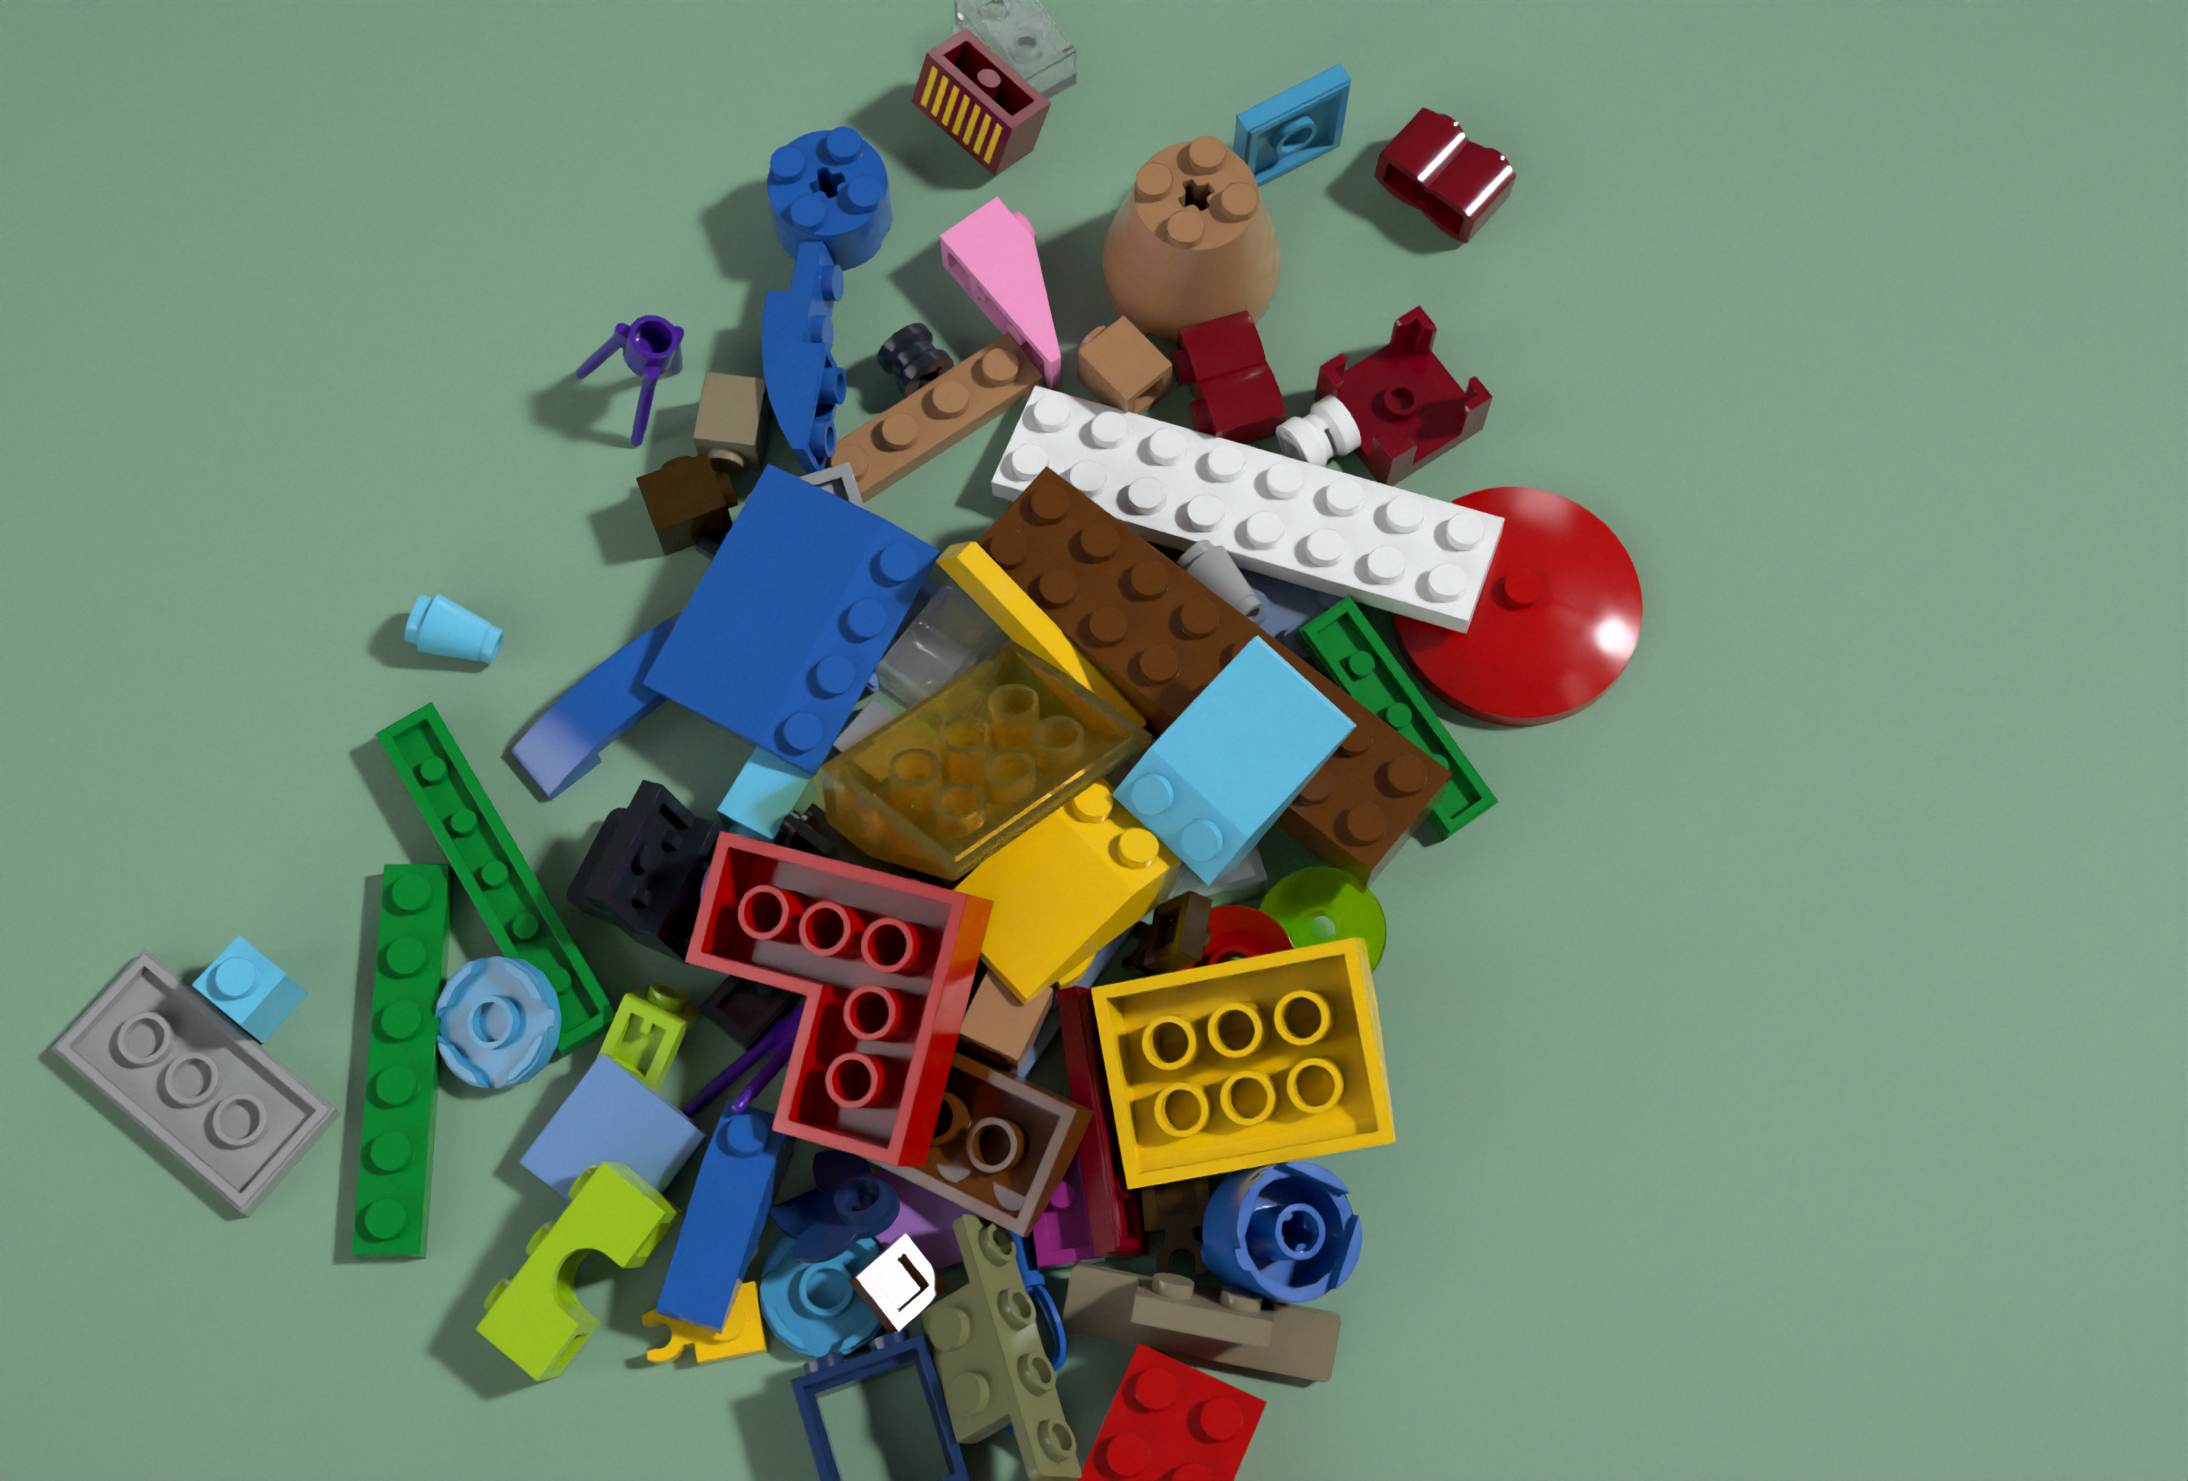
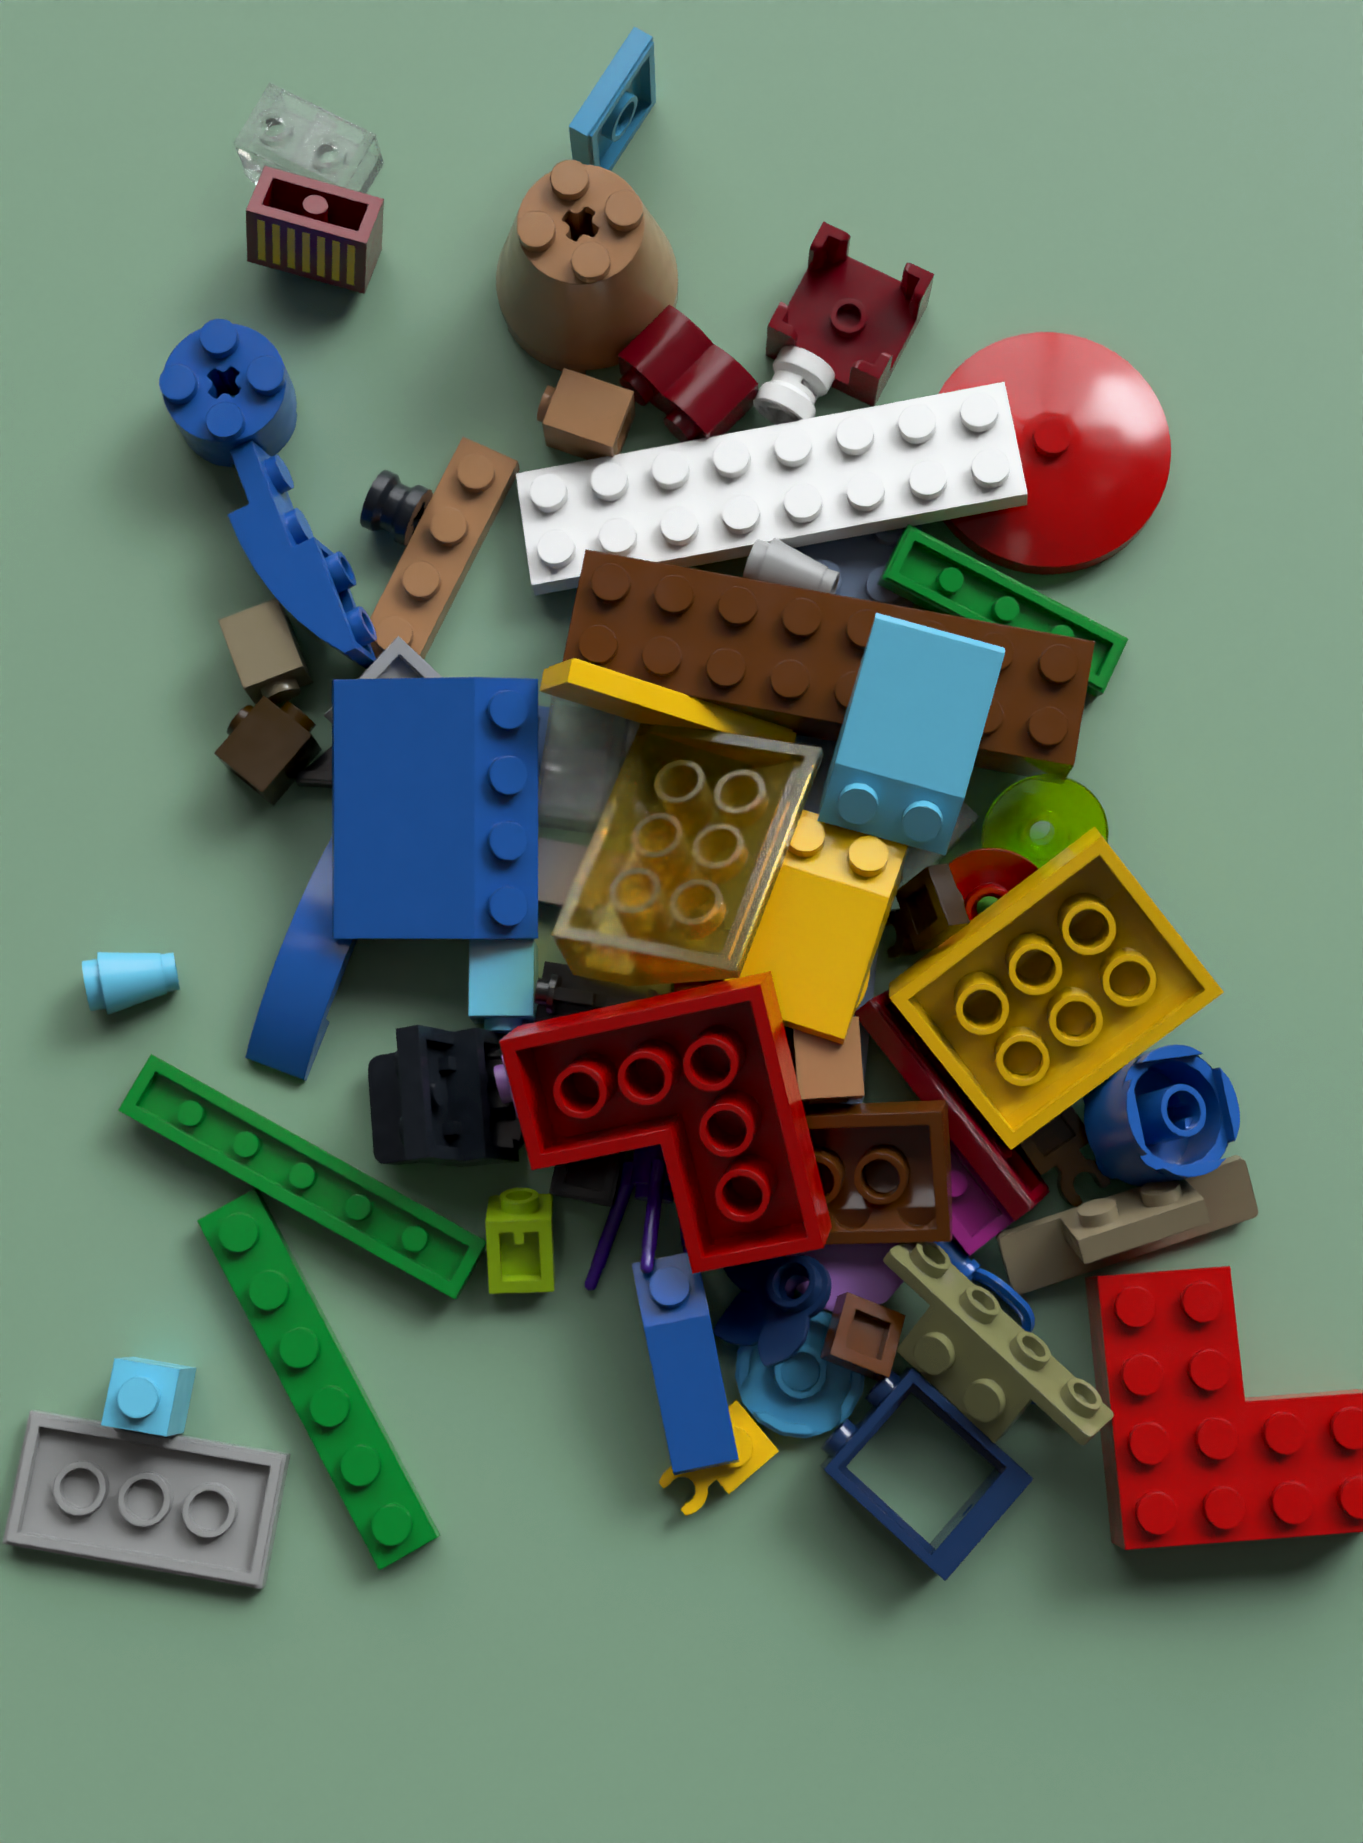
camera: 25 degrees left, 10 degrees up
(498, 1022) = (384, 1303): dark azure tile -> none
(537, 1311) = (575, 1533): lime arch -> none
(614, 1120) = (551, 1354): medium blue tile -> none
(648, 350) = (159, 632): dark purple plant -> none
(1000, 270) = (427, 383): bright pink slope -> none
(1445, 174) = (769, 81): dark red brick -> none

